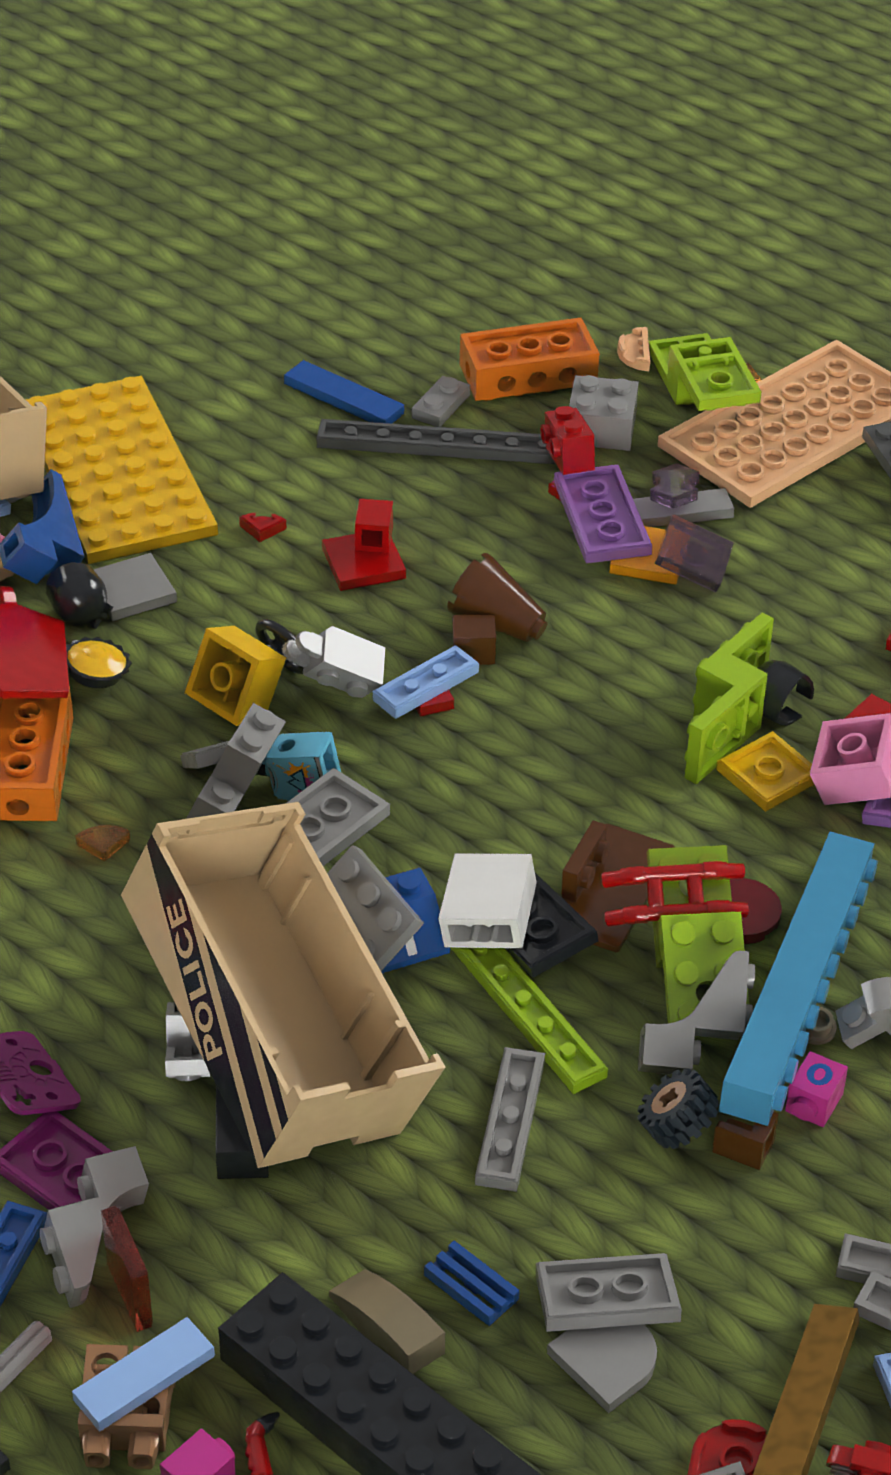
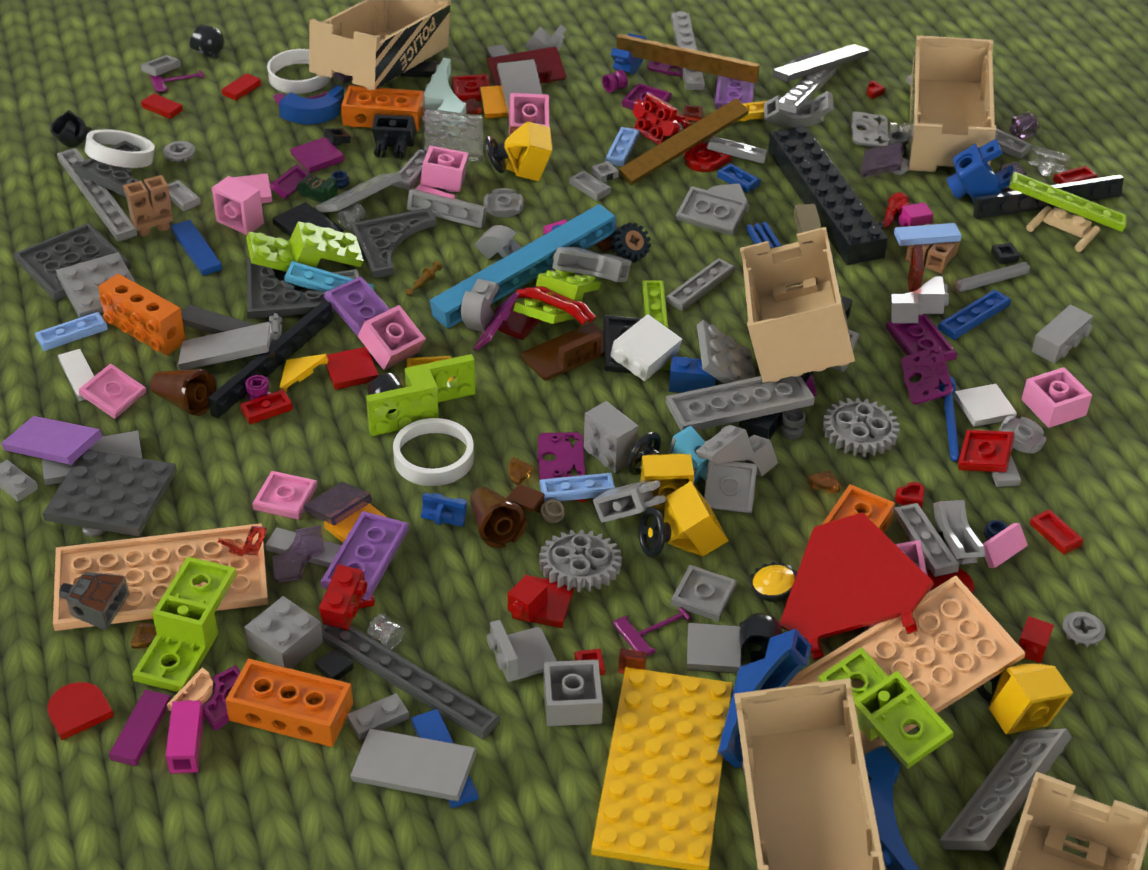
camera: 150 degrees left, 0 degrees up
(84, 938) = (860, 427): none -> light grey gear
(175, 639) = (704, 593): none -> light grey tile
(211, 526) = (631, 659): none -> clear red tile
(229, 566) = (635, 638): none -> magenta piece
(252, 465) = (572, 693): none -> light grey brick
(322, 702) = (670, 469): none -> yellow piece
(338, 494) = (519, 653): none -> light grey bracket
(353, 600) = (580, 560): none -> light grey gear
(364, 368) = (413, 764): none -> light grey tile
(430, 743) = (609, 436): none -> light grey brick
(432, 646) = (552, 511): none -> dark tan plate
(479, 738) = (565, 455): none -> magenta axle
(503, 457) = (383, 629): none -> clear wheel
(526, 692) = (519, 470): none -> clear orange tile
(527, 420) = (334, 665): none -> black tile
(565, 592) = (444, 509): none -> blue hips
(601, 312) = (185, 737): none -> dark pink brick
(609, 363) = (215, 709): none -> magenta tile
(624, 1443) = (735, 175): none -> blue tile
(639, 696) = (435, 476): none -> white piece
(653, 312) = (140, 728): none -> magenta tile
(728, 306) = (77, 708): none -> red tile
(738, 449) = (246, 549): none -> clear red bracket
(742, 845) = (501, 314): none -> magenta axle
(771, 553) = (284, 495): none -> bright pink tile
(791, 860) = (476, 305): none -> light grey brick
(816, 353) = (96, 597): none -> torso

